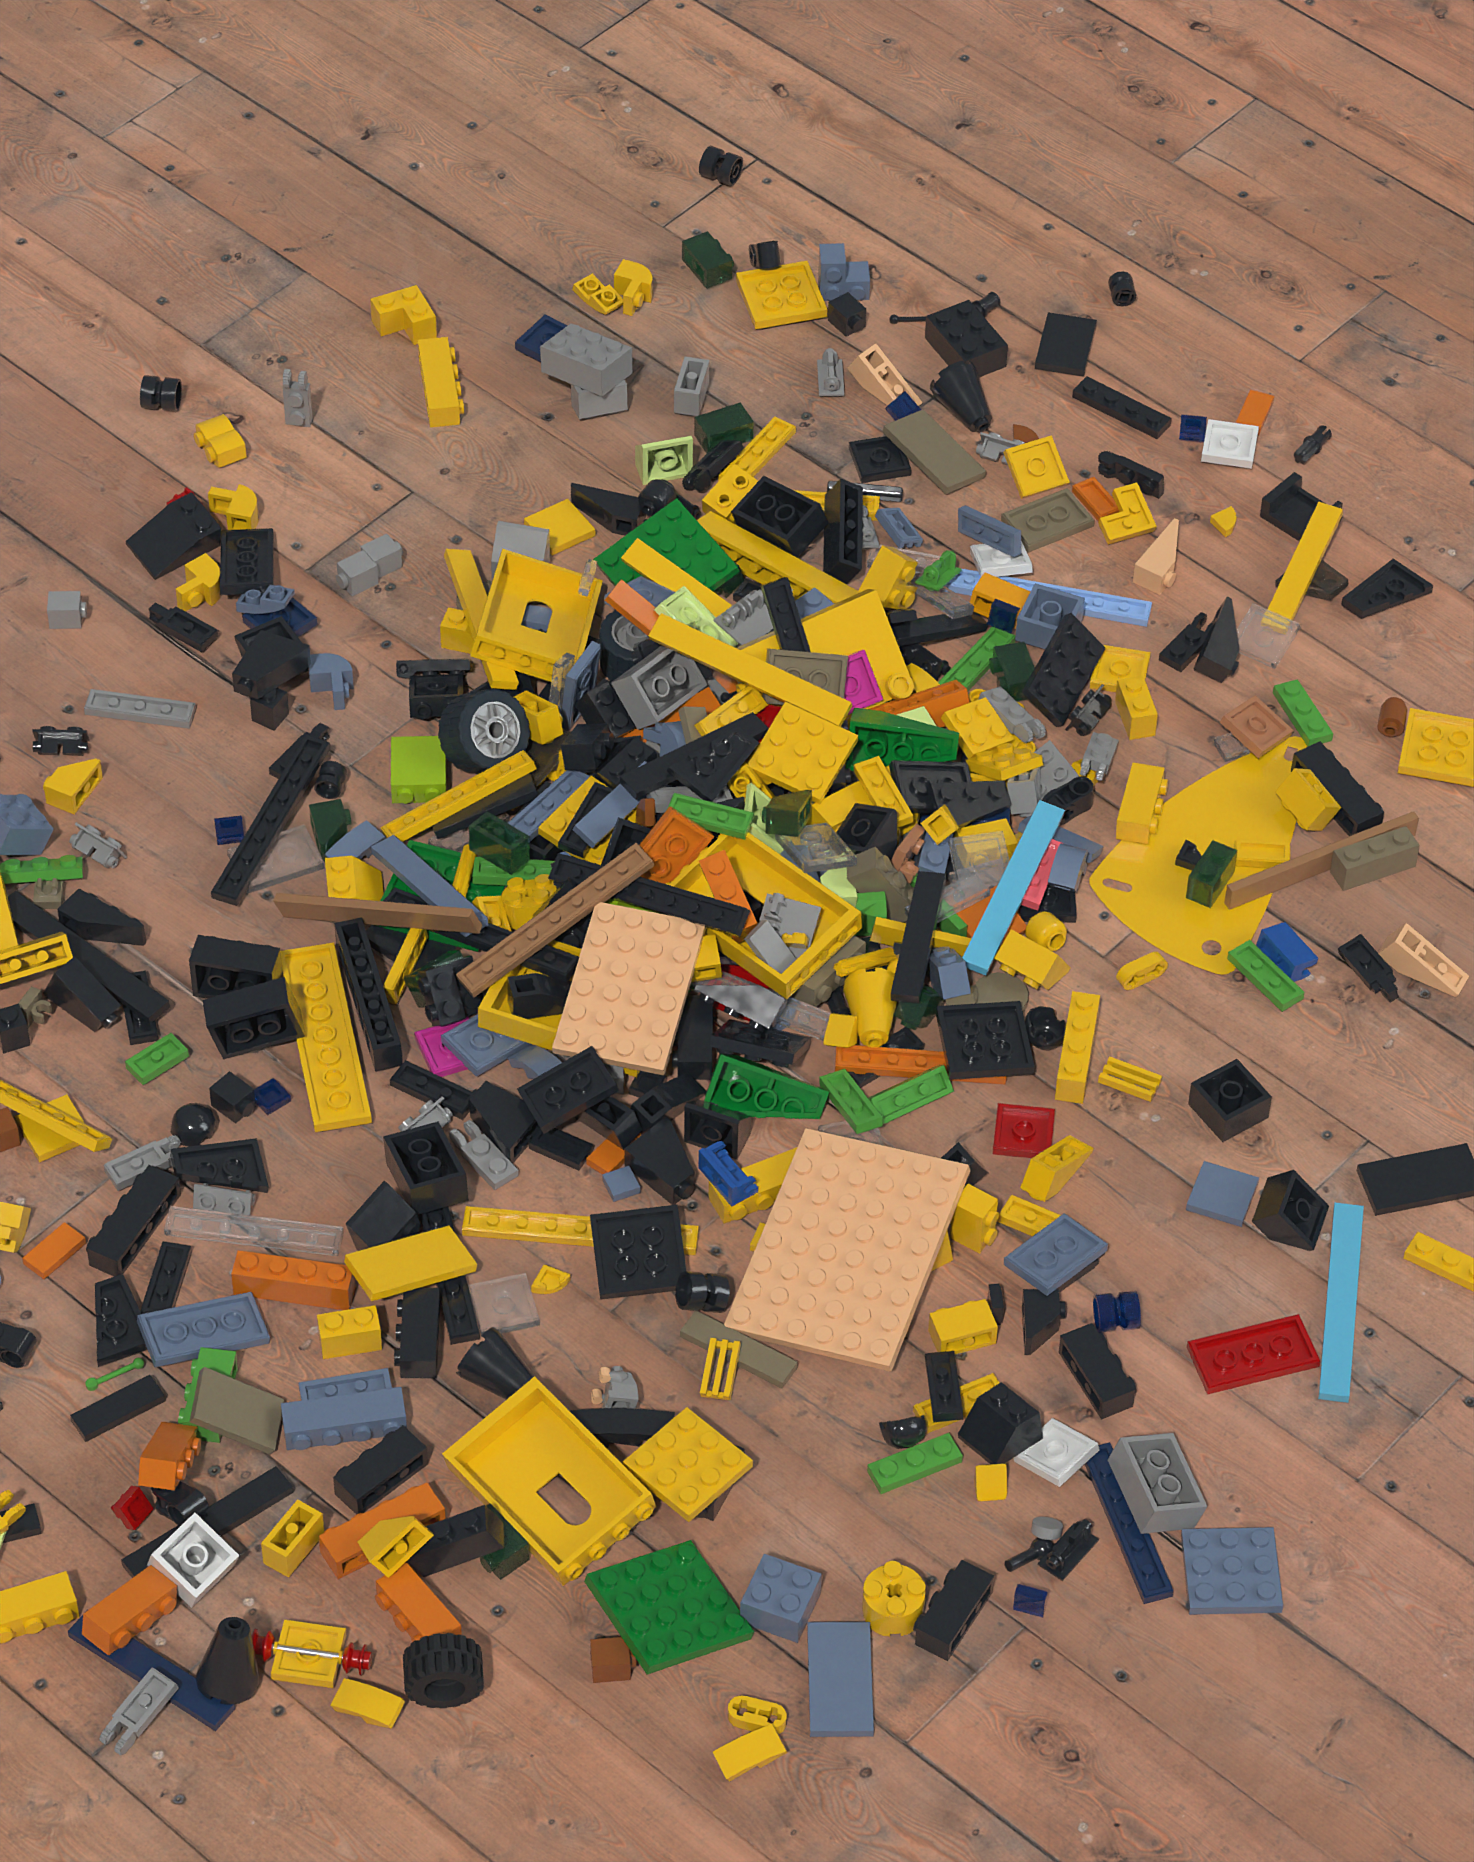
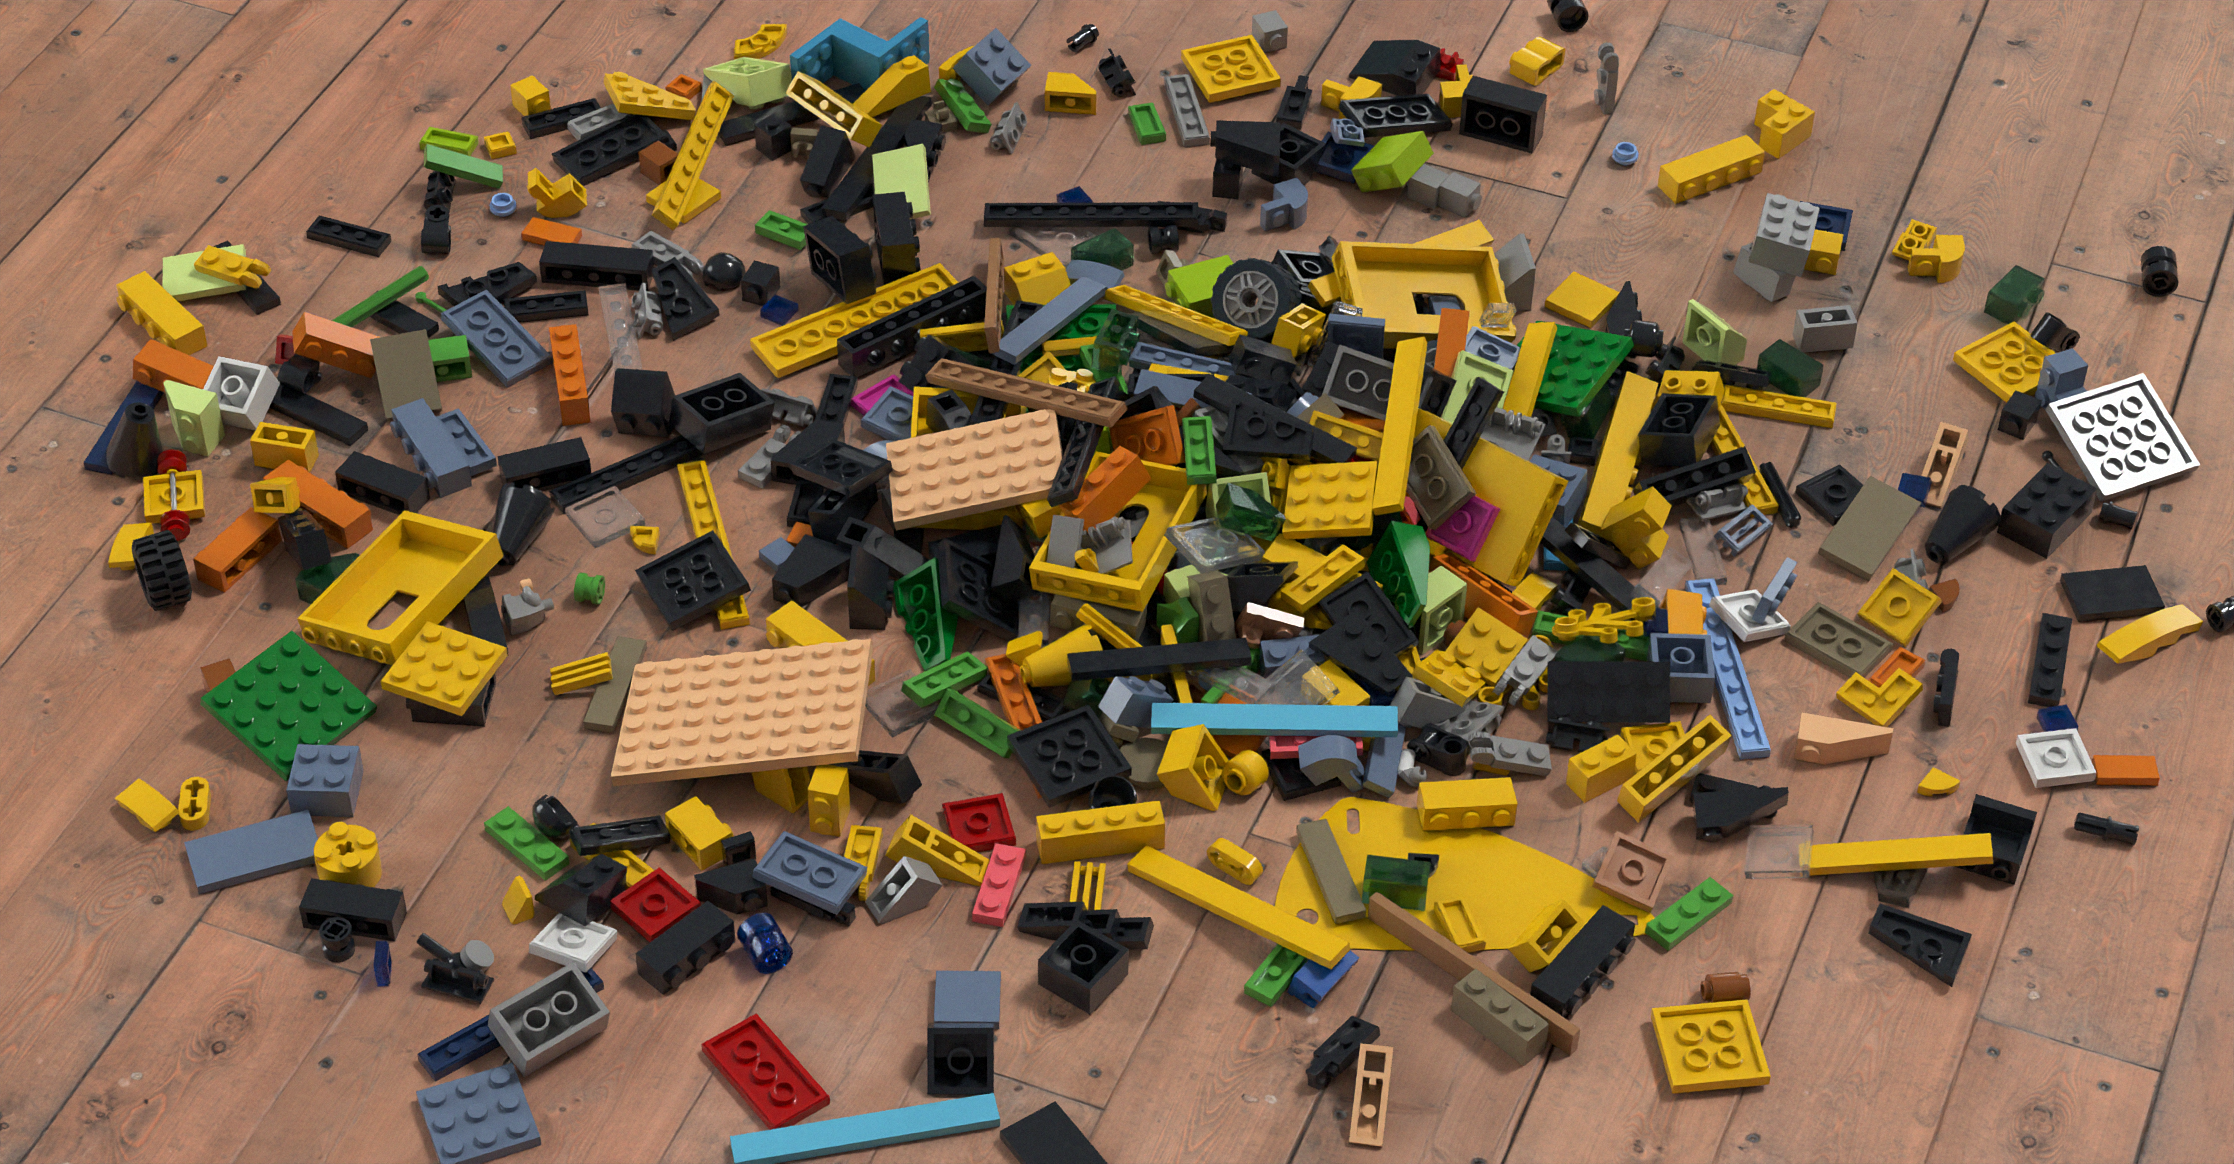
camera: 70 degrees right, 5 degrees down
(101, 656) = (1230, 68): none -> yellow plate
(101, 1425) = (383, 297): none -> bright green axle
(139, 1710) = (82, 411): light grey hinge -> none
(143, 743) = (1147, 123): none -> bright green tile
(150, 945) = (904, 172): none -> yellowish green tile
(207, 1604) = (195, 417): none -> yellowish green slope
(298, 486) = (1502, 114): none -> black brick
(321, 582) = (1392, 161): none -> lime brick
(349, 1332) = (525, 421): yellow brick -> none
(377, 787) = (1169, 261): none -> dark tan tile
(382, 430) = (1625, 153): none -> light blue plate
(410, 1263) = (607, 431): yellow tile -> none
(607, 1336) = (589, 588): none -> bright green wheel
(702, 1292) = (657, 628): black wheel -> none
(725, 1174) = (796, 603): blue hinge -> none
(830, 374) = (1922, 428): light grey hinge -> none
(899, 686) = (1492, 564): yellow tile -> none
(909, 263) = (2122, 437): none -> plate
(940, 572) = (1674, 561): bright green hinge -> none
(940, 824) = (1310, 632): yellow slope -> none
(987, 1630) = (337, 939): none -> black wheel
(988, 665) = (1604, 623): none -> yellow plant
(1037, 1379) = (654, 904): none -> red plate
(1086, 830) = (1407, 772): none -> arm
(1091, 1200) = (903, 890): none -> light grey slope
(1101, 1136) = (999, 885): none -> coral plate
(1126, 339) = (2148, 633): none -> yellow slope
(1165, 660) = (1674, 768): none -> yellow brick
(1173, 914) = (1331, 871): none -> dark tan tile
(1173, 1090) = (1054, 918): none -> black slope
(1200, 981) = (1239, 907): none -> yellow tile

